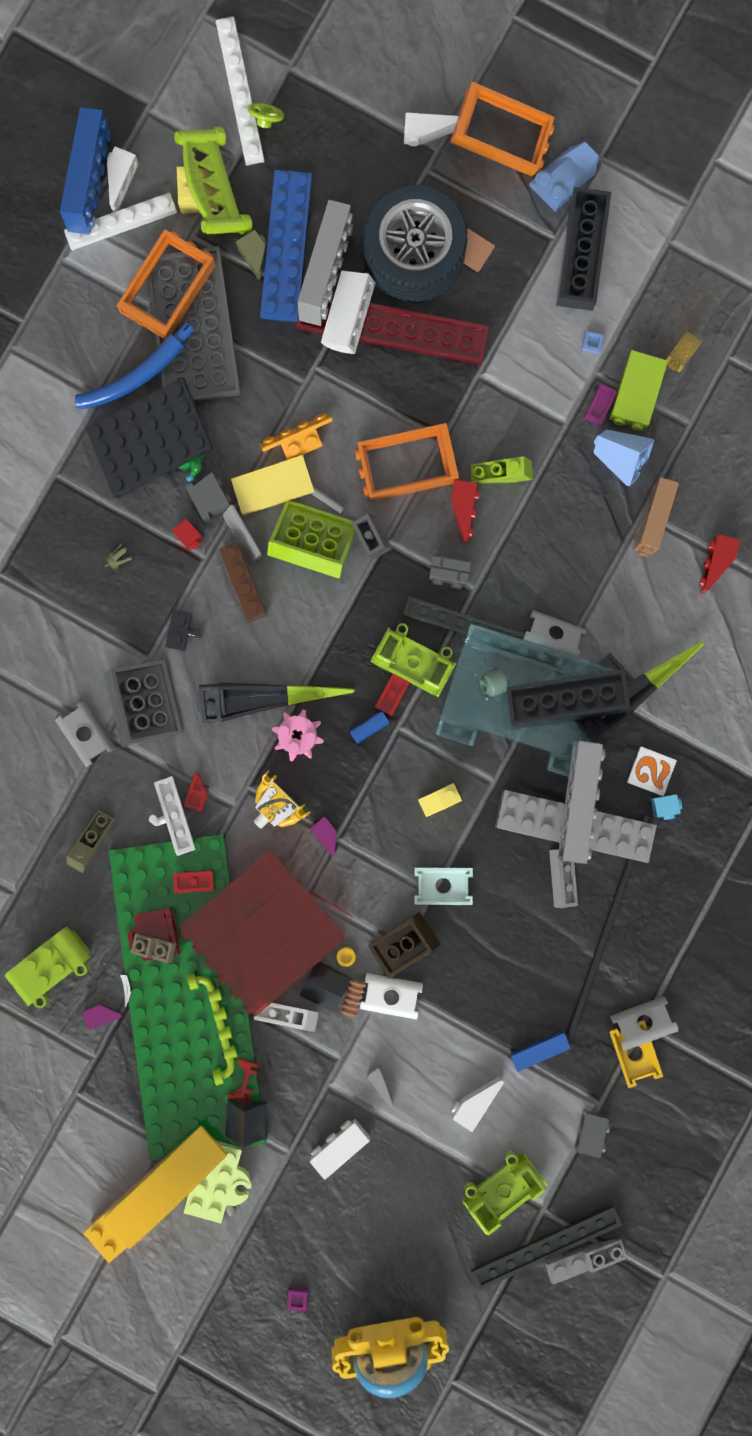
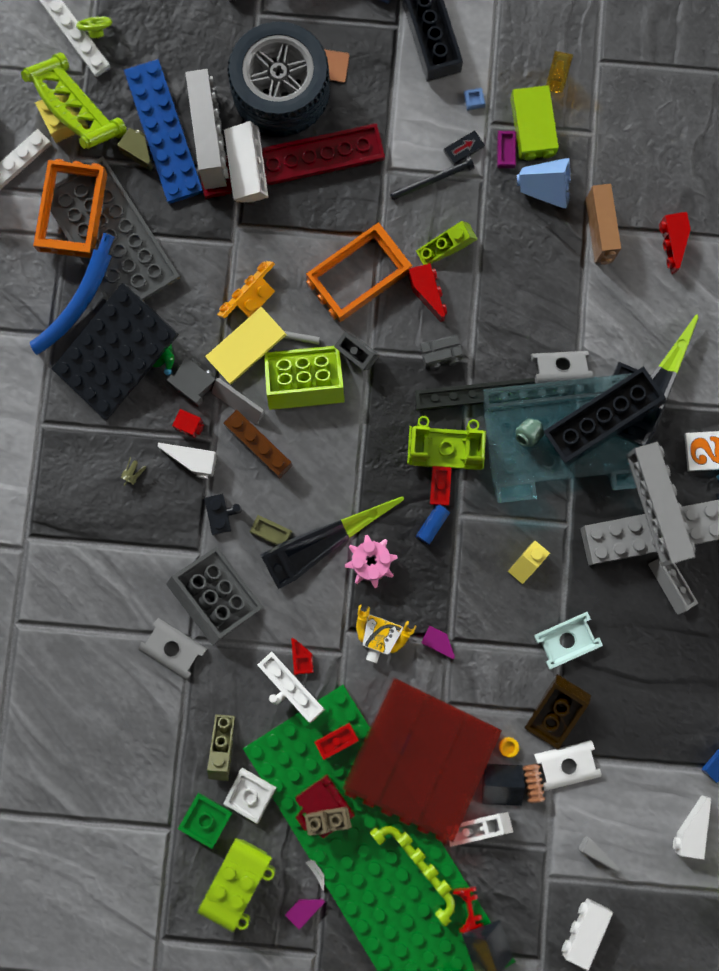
camera: 25 degrees left, 5 degrees down
(48, 898) = (205, 820): none -> green plate
(96, 894) = (249, 795): none -> white tile
(179, 572) = (196, 460): none -> white slope
(219, 666) = (270, 531): none -> olive tile
(517, 403) = (468, 164): none -> black bar
(561, 385) = (464, 147): none -> black tile

